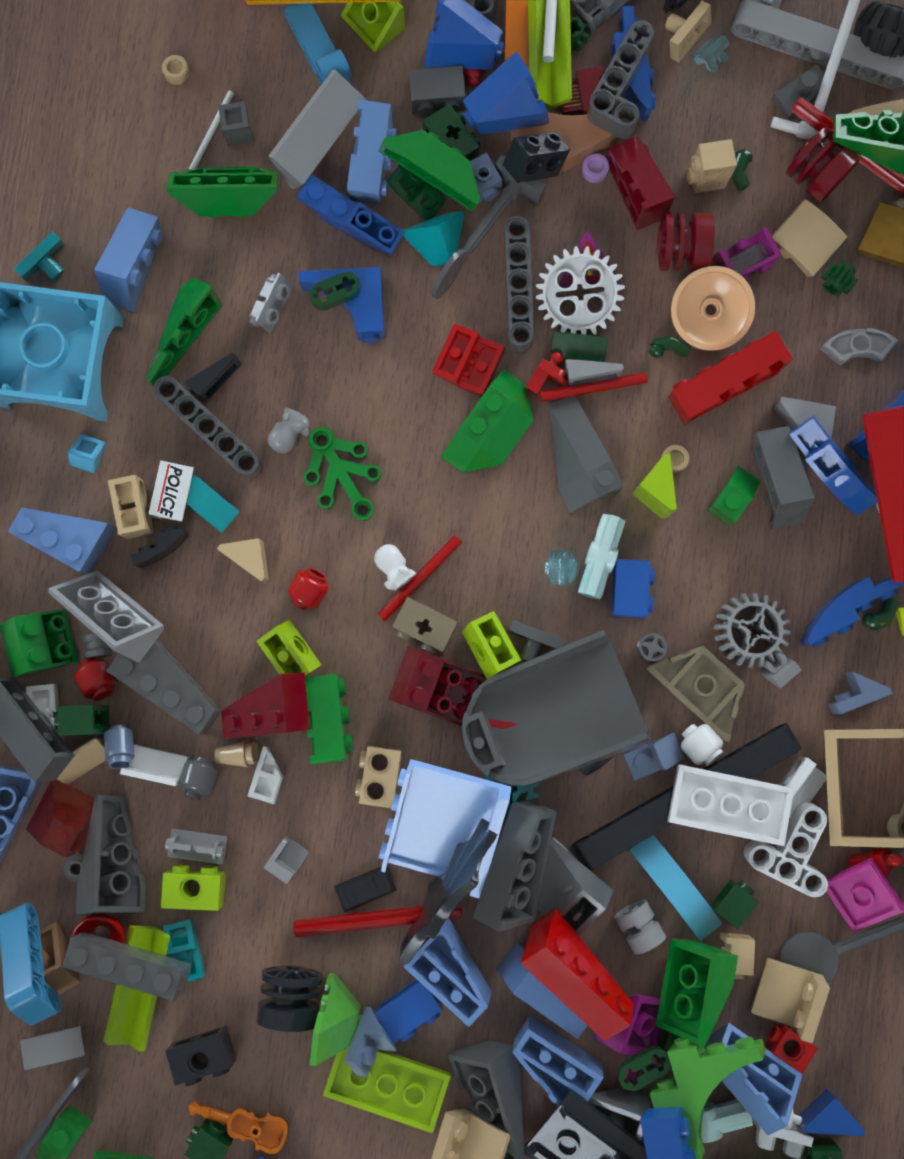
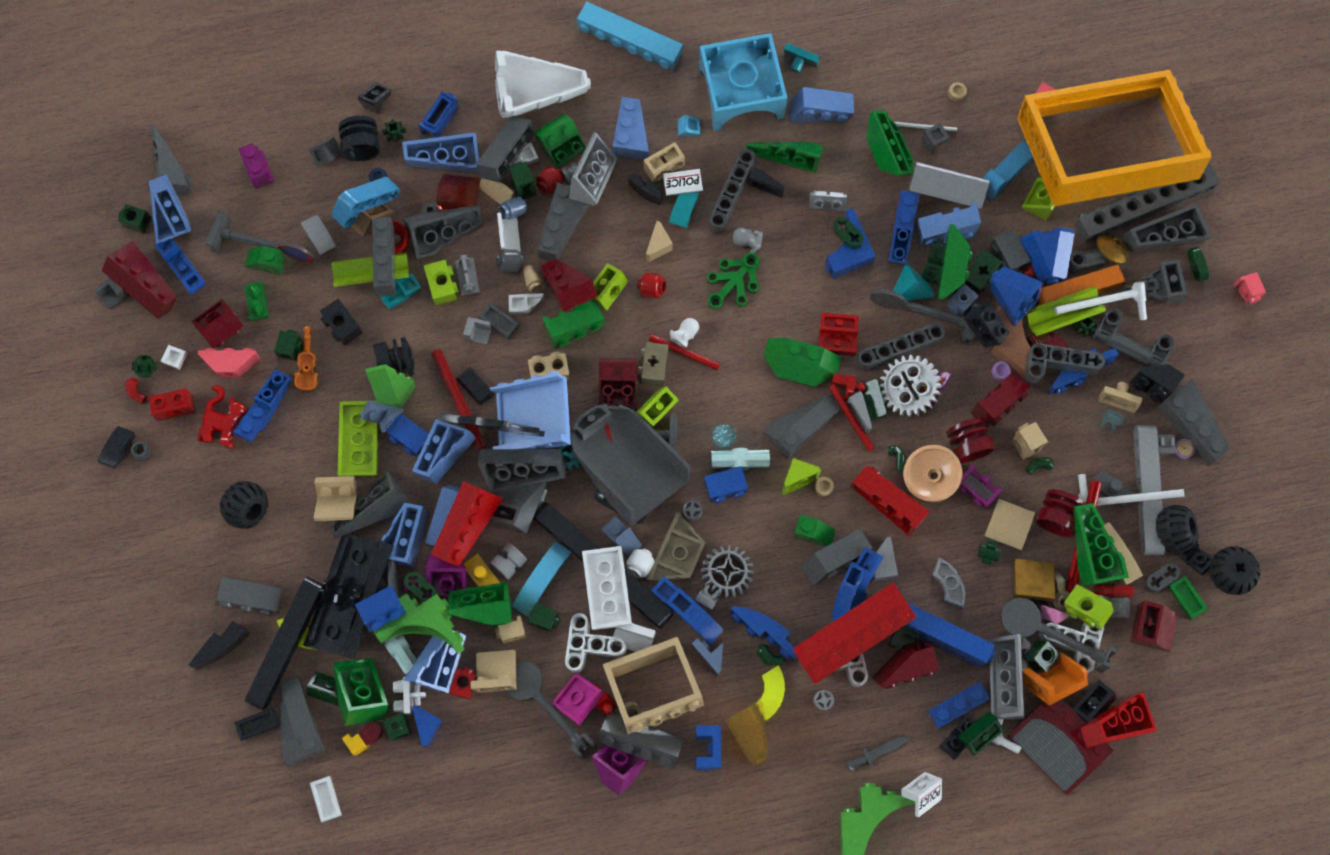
camera: 65 degrees right, 10 degrees down
(280, 822) = (499, 321): none -> dark grey tile
(641, 968) = (480, 571): none -> yellow tile
(789, 704) = (687, 610): none -> blue slope

